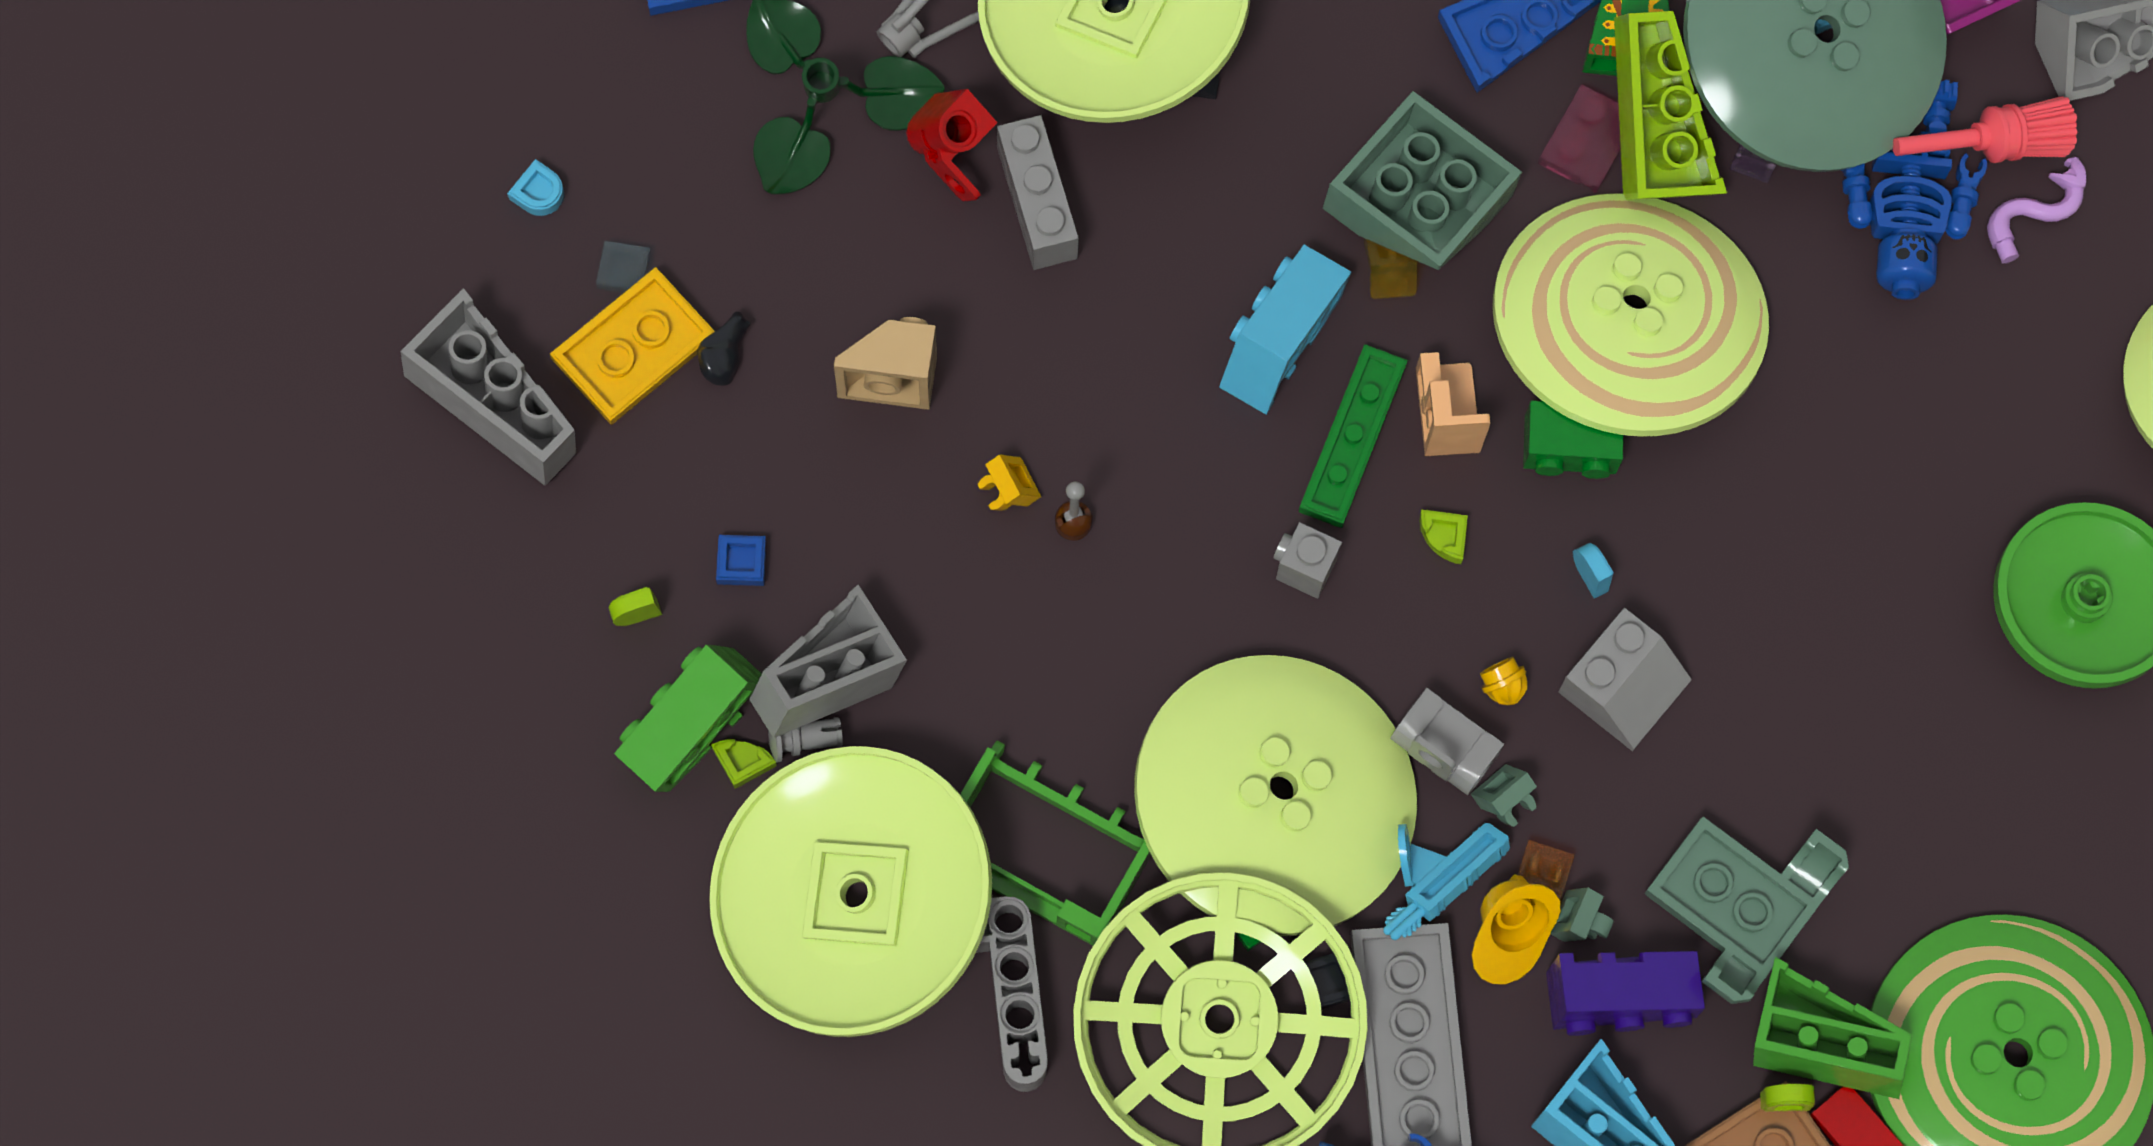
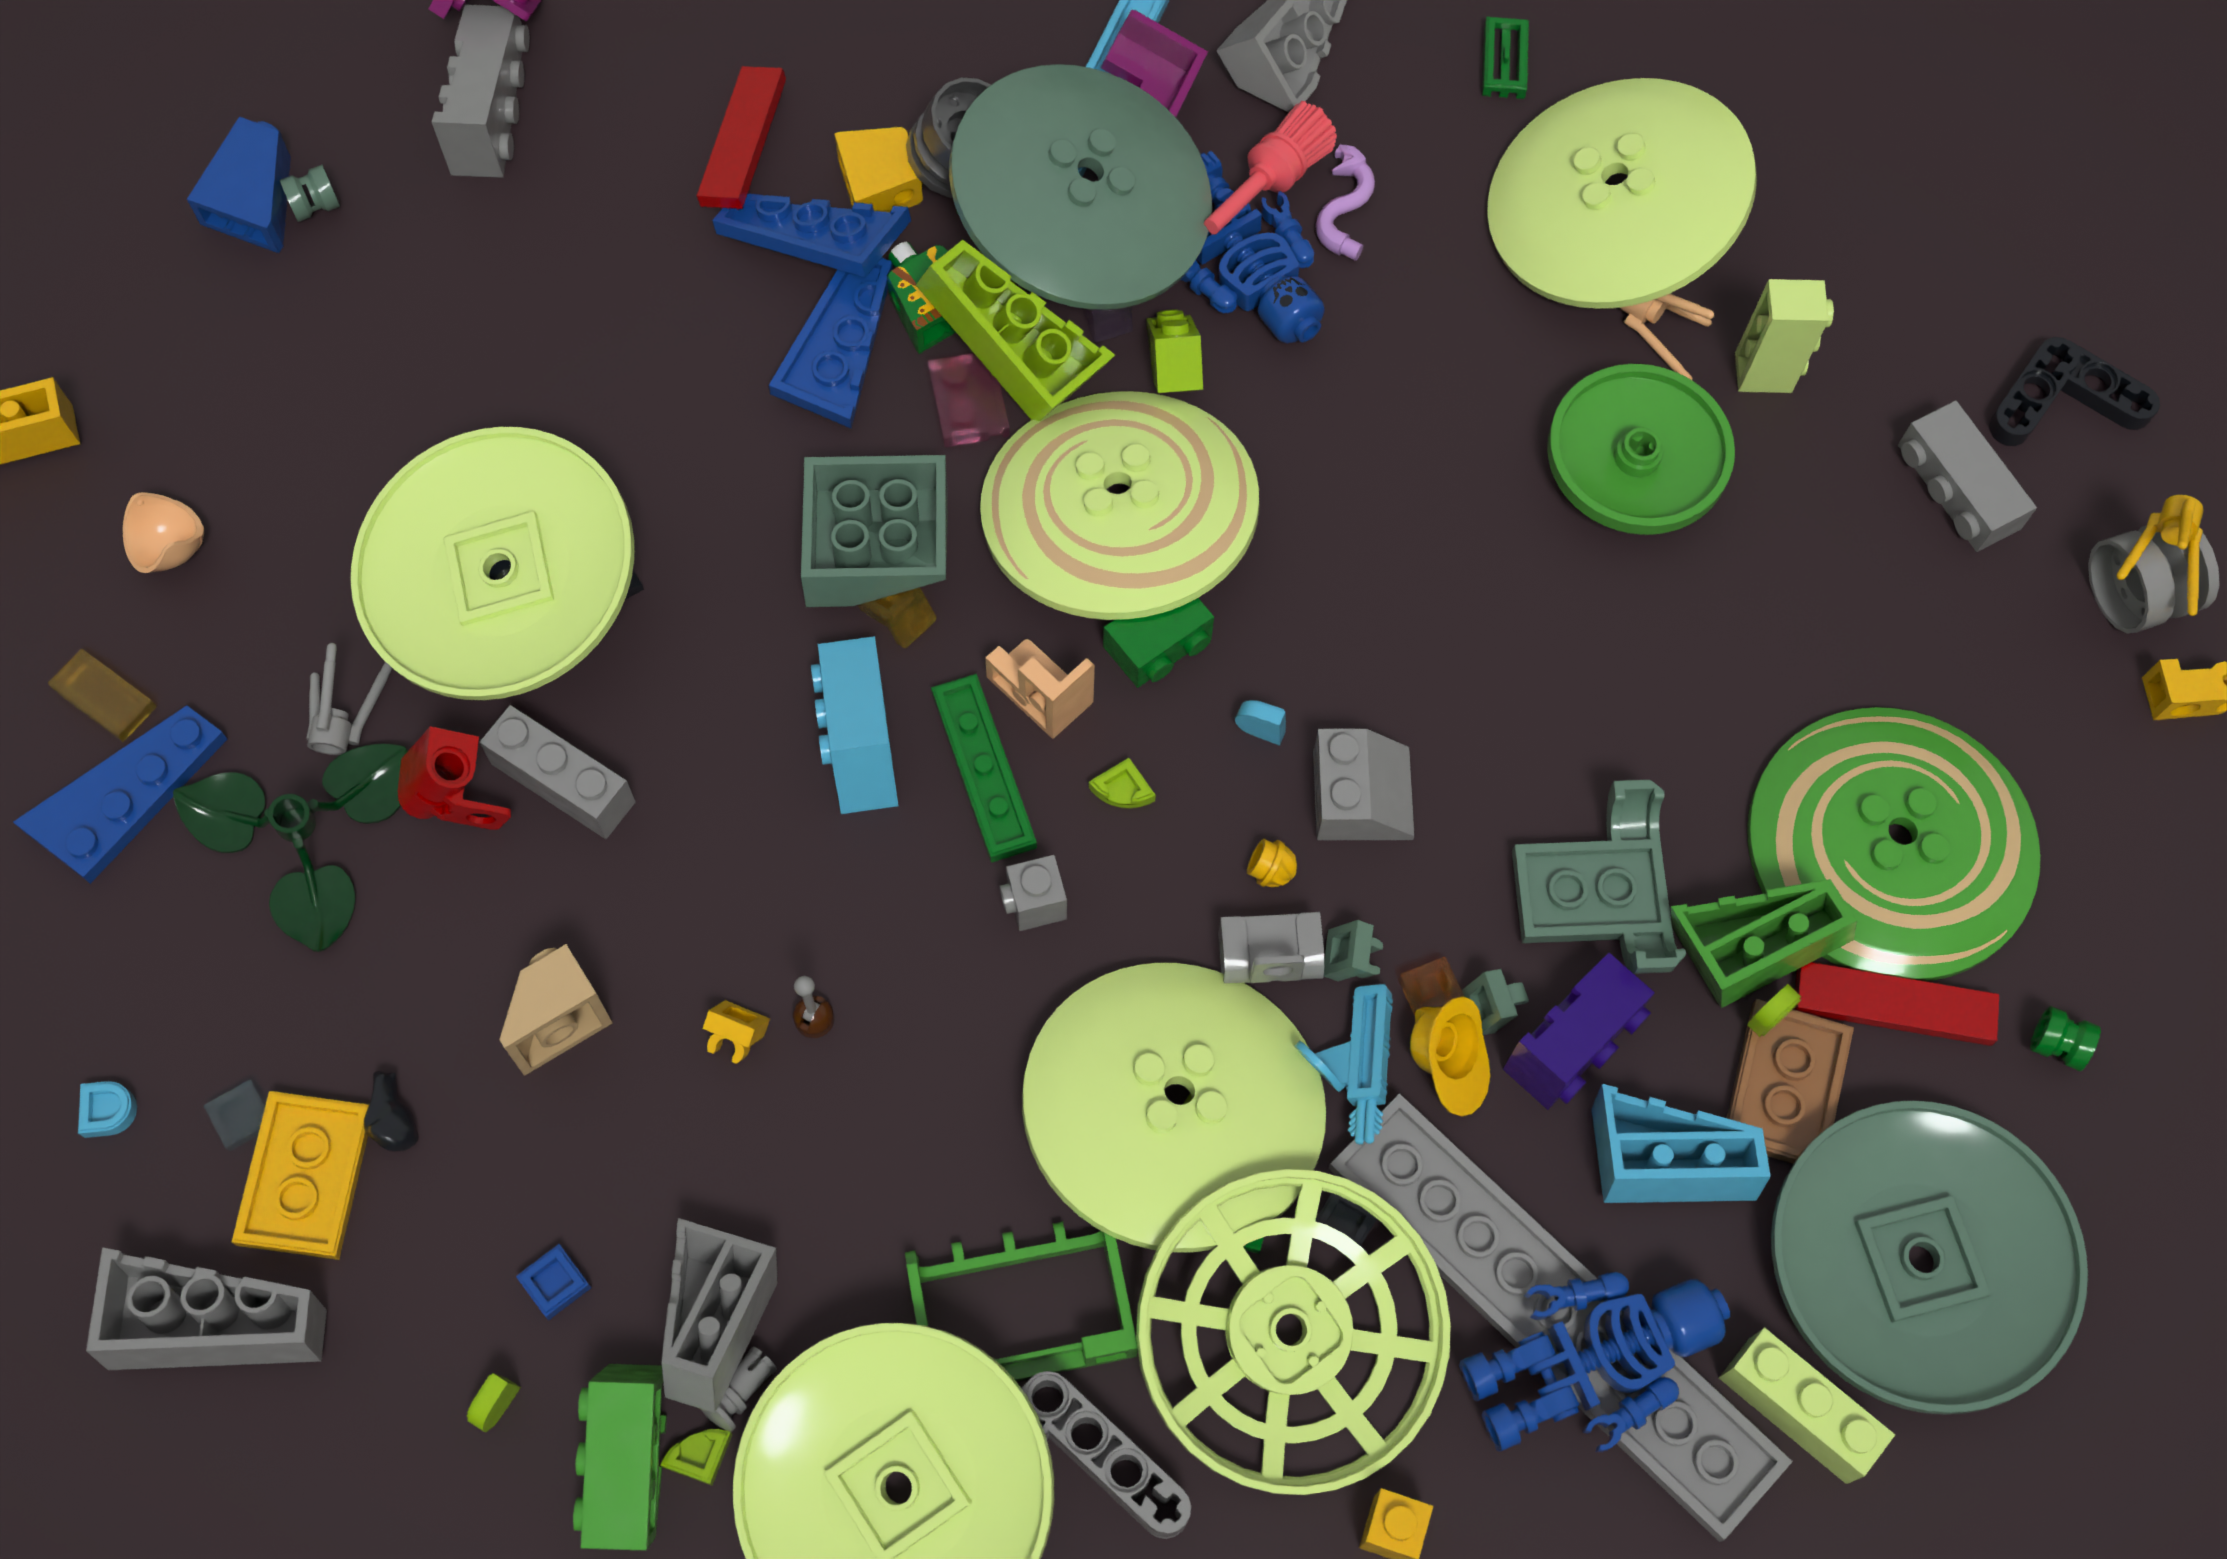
camera: 40 degrees left, 5 degrees down
(1782, 226) = (1175, 352): none -> lime slope

